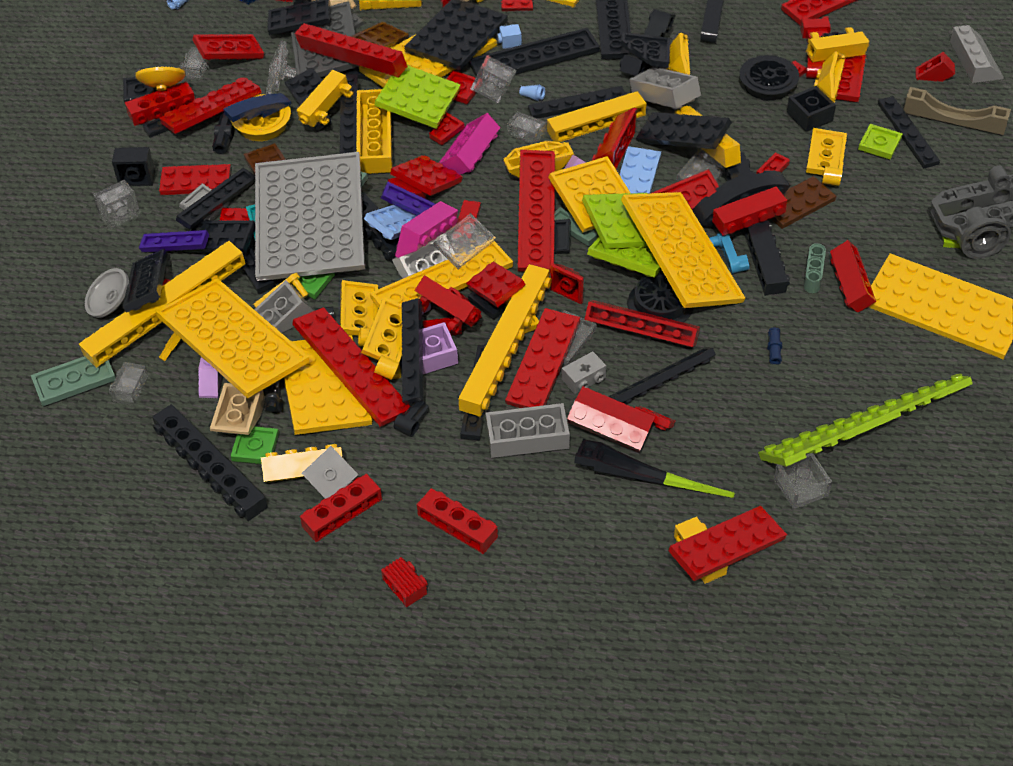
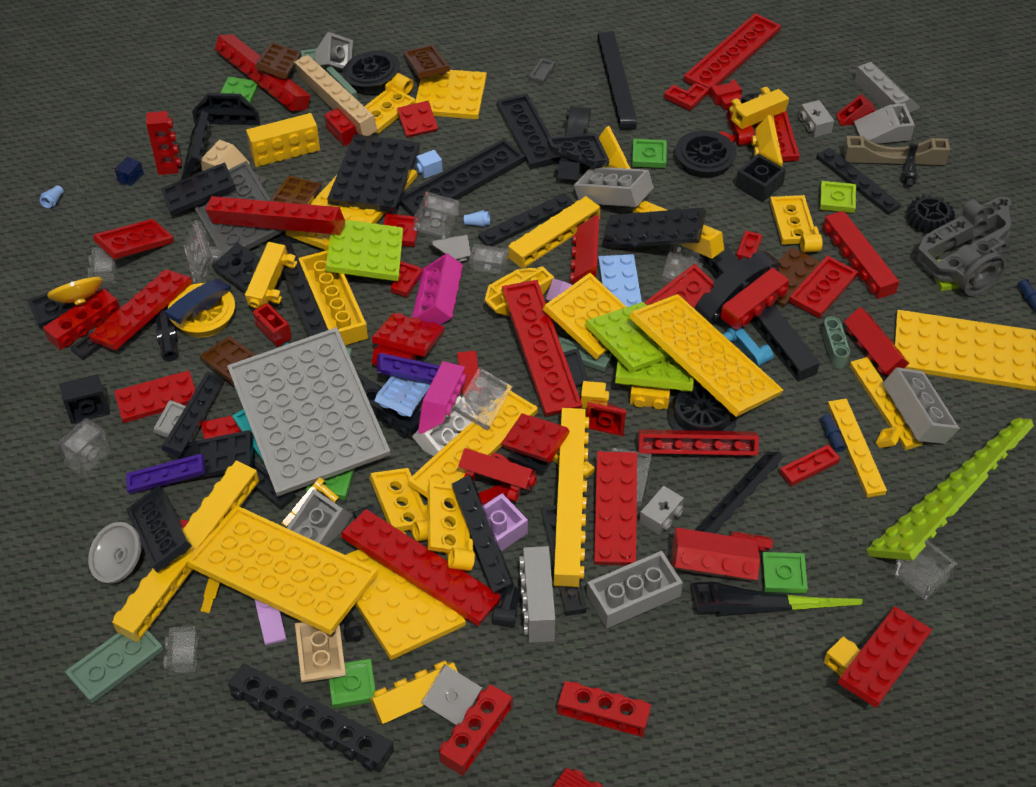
camera: 20 degrees left, 0 degrees up
(313, 140) = (272, 324): none -> red brick
(439, 413) = (537, 594): none -> light grey brick
(499, 110) = (455, 246): none -> light grey slope
(569, 259) = (593, 391): none -> yellow brick
(618, 275) = (649, 397): none -> yellow brick
(671, 452) = (784, 572): none -> bright green plate
(717, 67) = (649, 153): none -> bright green plate
(739, 368) = (809, 465): none -> red plate
(777, 26) = (689, 98): none -> red plate
(792, 364) = (857, 448): none -> yellow plate
(826, 361) = (888, 437): none -> yellow plate
(827, 217) = (823, 286): none -> red plate
(839, 333) = (877, 392): none -> yellow plate
(866, 340) = (920, 406): none -> light grey brick
(876, 197) = (860, 255): none -> red brick
(892, 67) = (816, 118): none -> light grey brick
(958, 86) = (886, 125): none -> light grey slope
(961, 136) = (909, 174): none -> black animal
(962, 172) = (929, 213): none -> black gear

